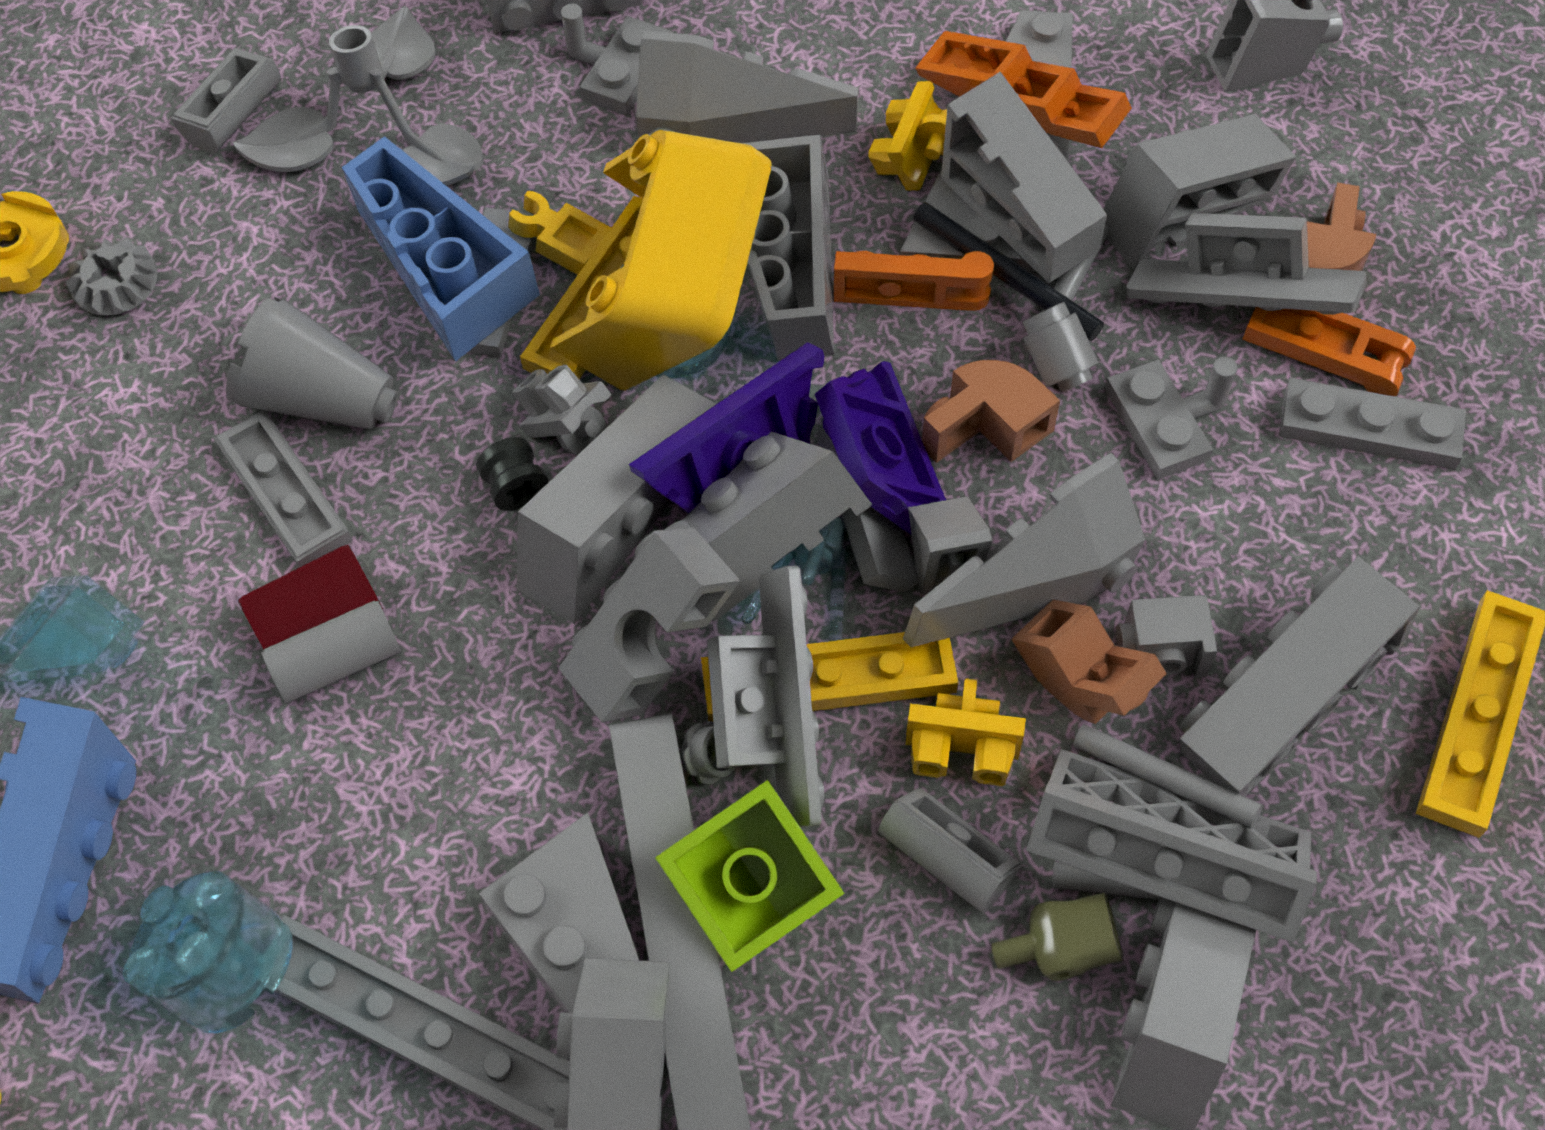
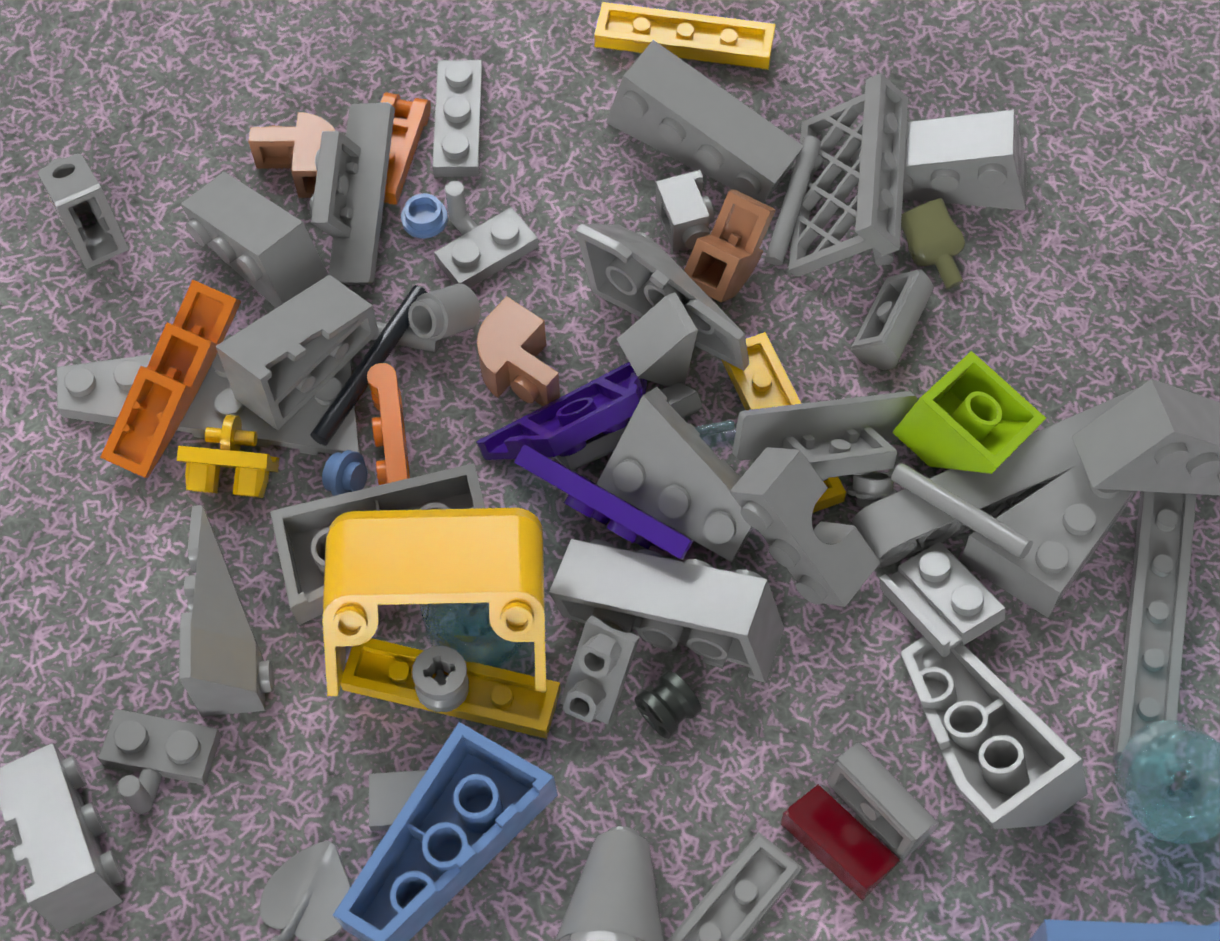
camera: 105 degrees left, 0 degrees up
(338, 782) = (992, 742): none -> light grey wedge
(541, 786) = (942, 599): none -> light grey plate
(563, 236) = (393, 733): yellow plate -> none
(594, 244) = (443, 691): none -> light grey wheel
(618, 808) = (962, 511): none -> light grey bar
(875, 231) = (344, 472): none -> medium blue plate
(967, 727) = (809, 341): yellow hips -> none
(1208, 349) = (424, 216): none -> medium blue plate

